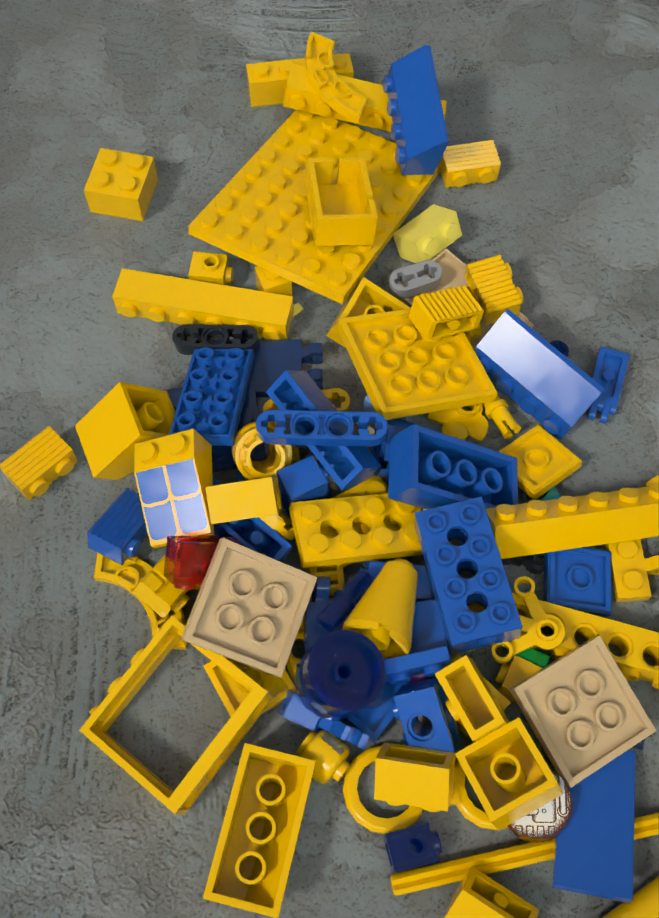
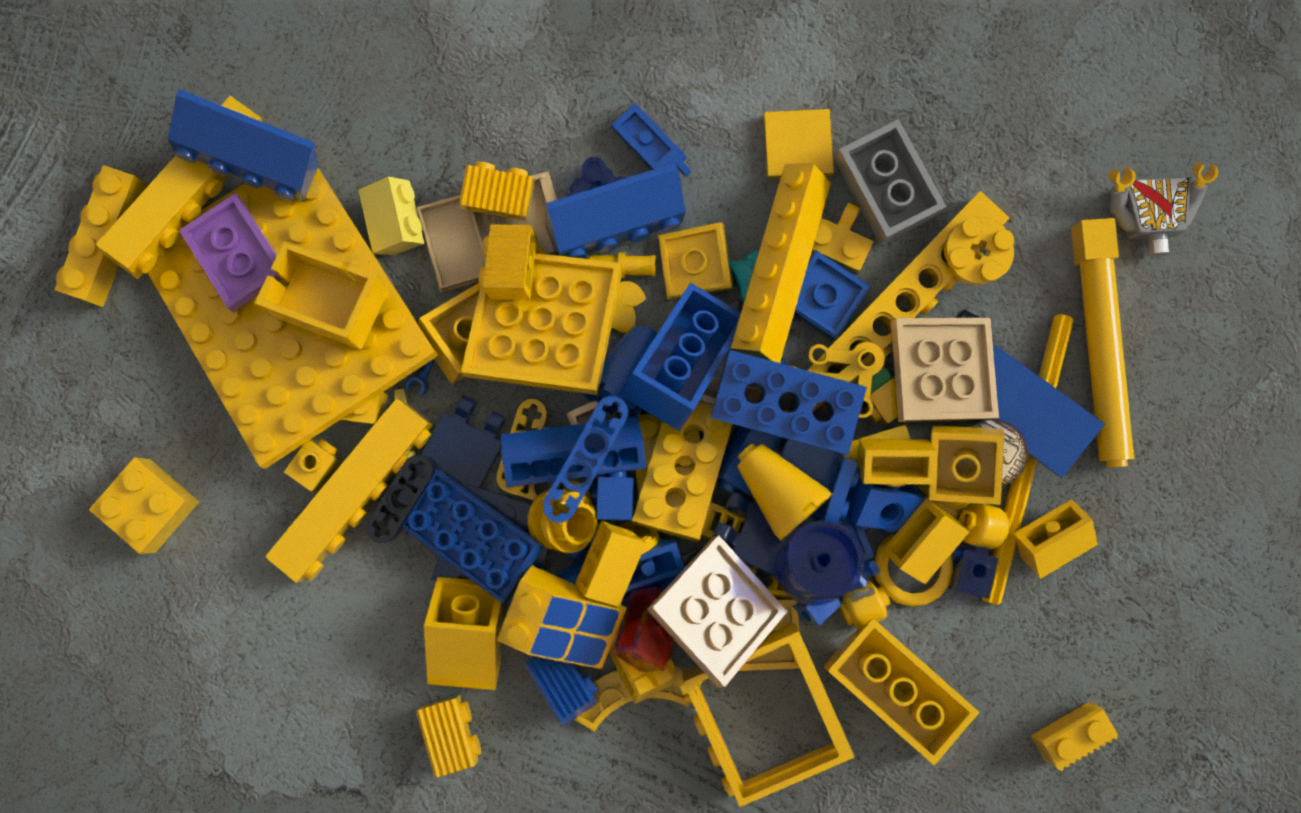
camera: 60 degrees left, 20 degrees up
(316, 316) = (422, 378): none -> blue hand
(325, 81) = (138, 219): yellow tile -> none
(336, 139) = (231, 251): none -> medium lavender plate
(344, 601) = (750, 519): clear blue axle -> none
(414, 278) = (448, 263): light grey beam -> none
(461, 833) = (986, 525): none -> yellow head
(470, 164) = (323, 115): yellow brick -> none

